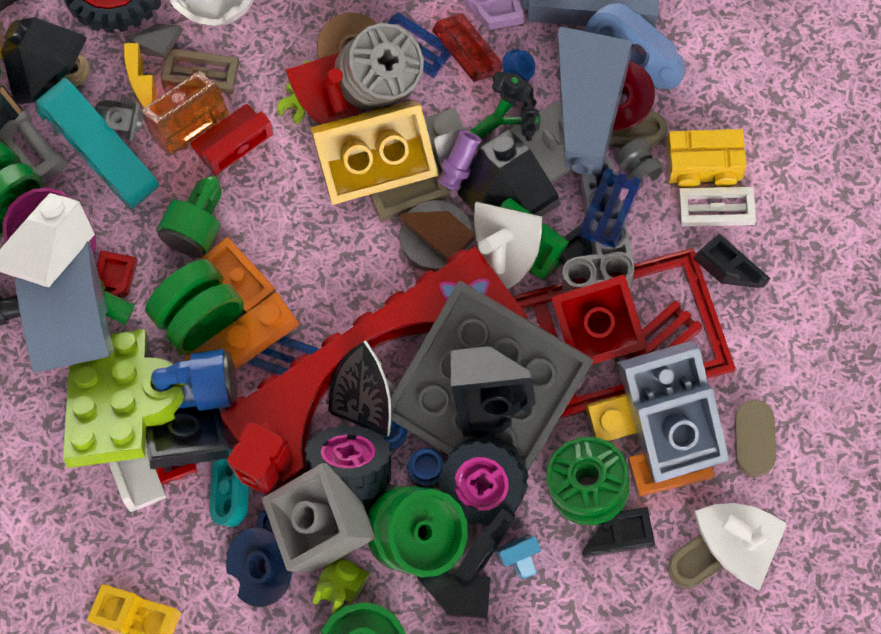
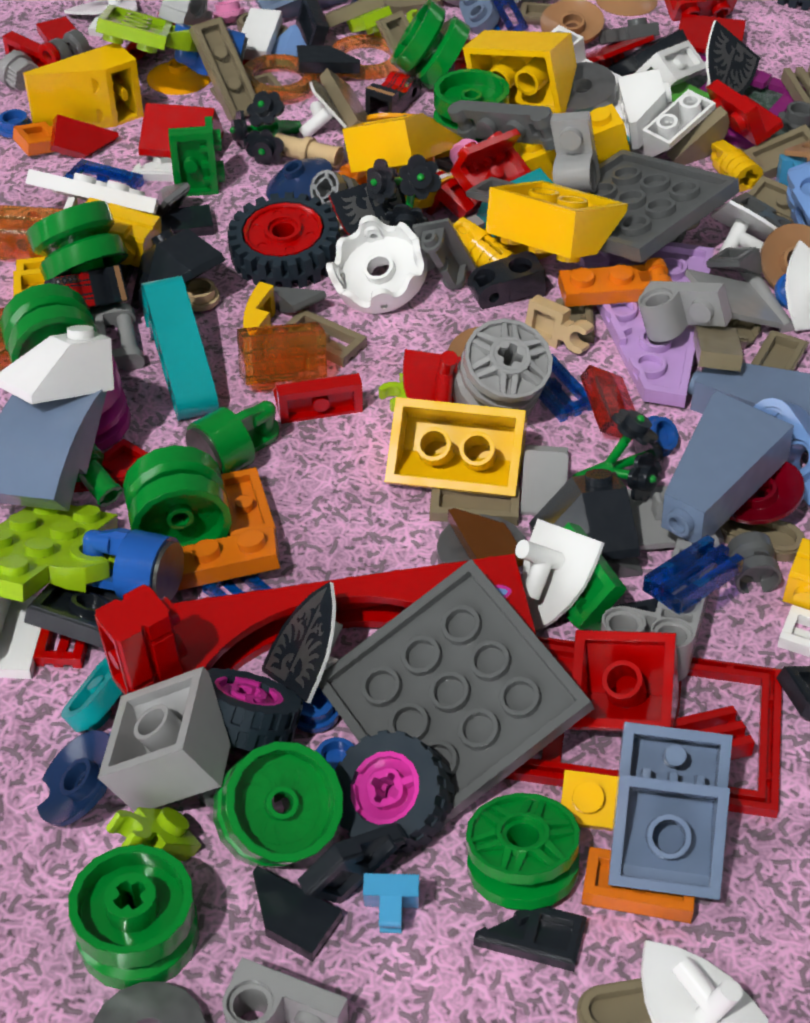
camera: 25 degrees right, 25 degrees down
(121, 115) = (216, 328): dark grey hinge -> none
(457, 165) = (538, 486): medium lavender pin -> none
(488, 390) = (442, 681): black slope -> none
(755, 438) = (769, 900): dark tan tile -> none

